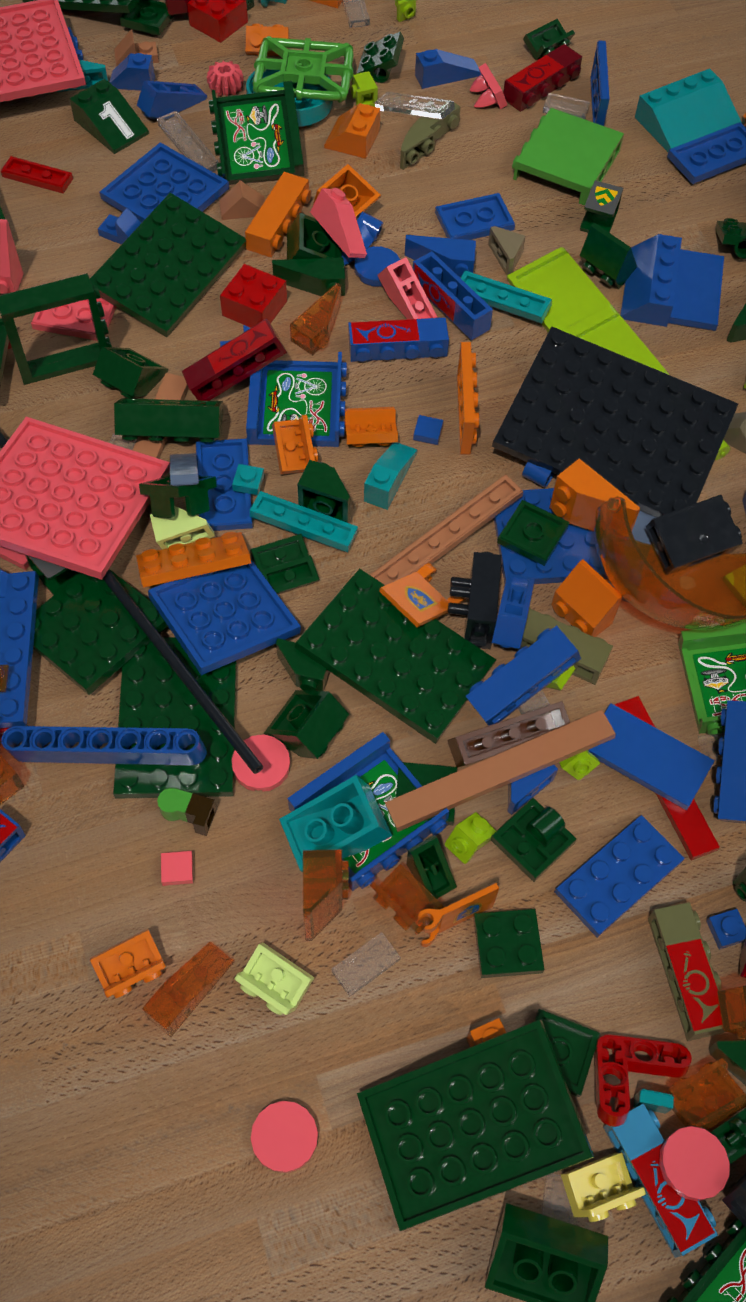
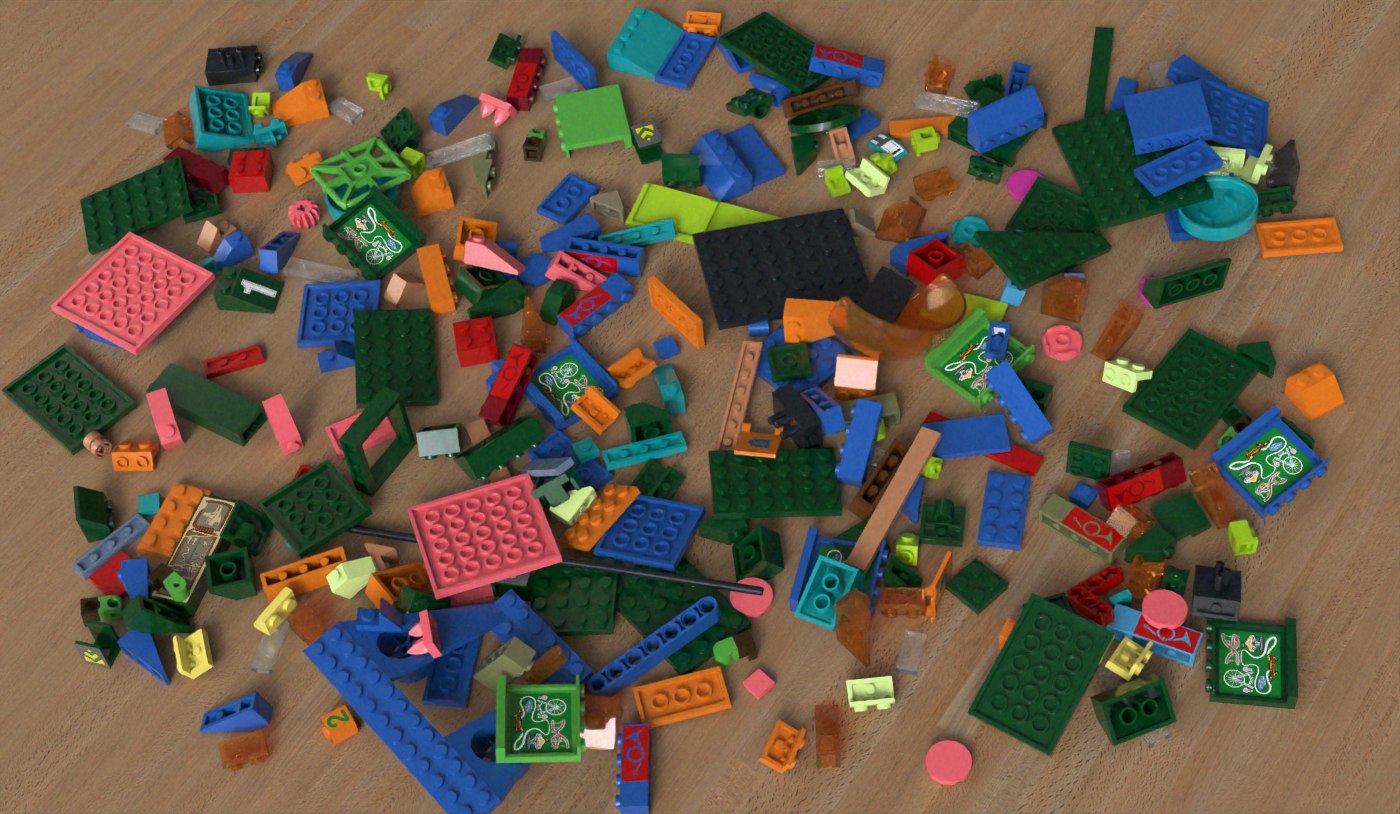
camera: 30 degrees left, 10 degrees down
(86, 820) = (682, 697): none -> orange plate
(366, 306) = (556, 300): none -> dark green slope
(491, 144) = (534, 145): none -> dark brown leg

